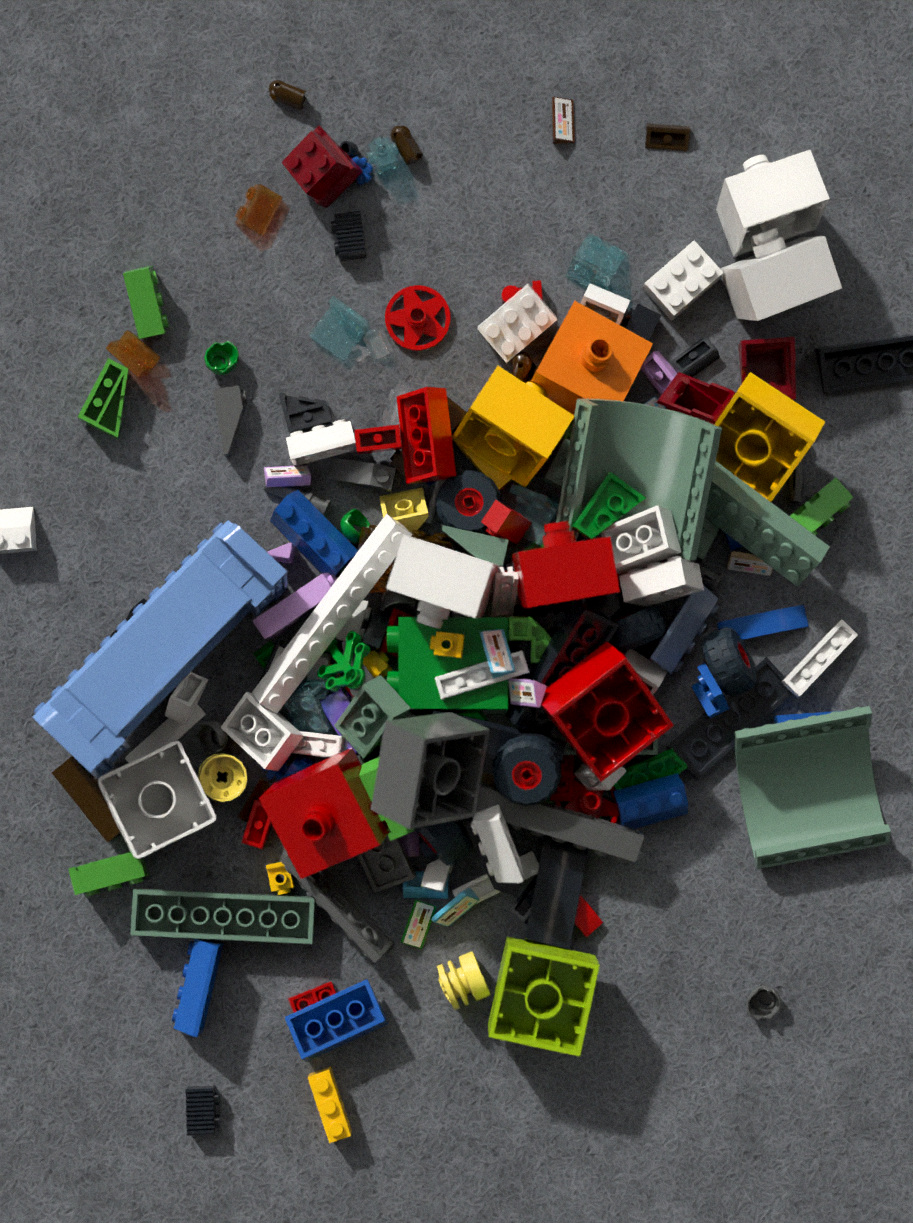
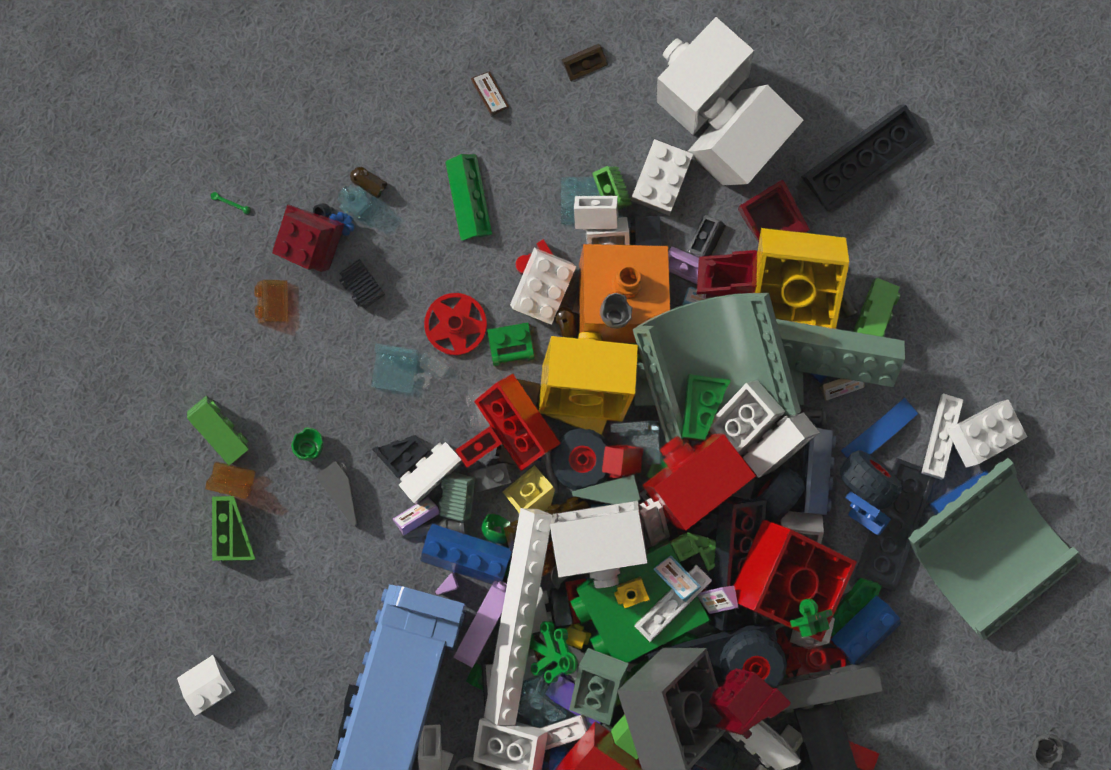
camera: 30 degrees left, 0 degrees up
(278, 112) = (215, 196): none -> green hinge
(287, 94) = (245, 190): dark brown piece -> none
(334, 477) = (457, 496): none -> sand green brick
(461, 356) = (509, 337): none -> green plate
(492, 206) = (468, 196): none -> green panel
(500, 795) = (745, 702): none -> dark red piece
(570, 374) = (615, 311): none -> dark grey hair
(602, 279) = (596, 212): none -> white brick
(603, 751) = (812, 620): none -> green hips
(630, 267) = (610, 183): none -> bright green brick
(863, 676) = (987, 433): none -> white brick

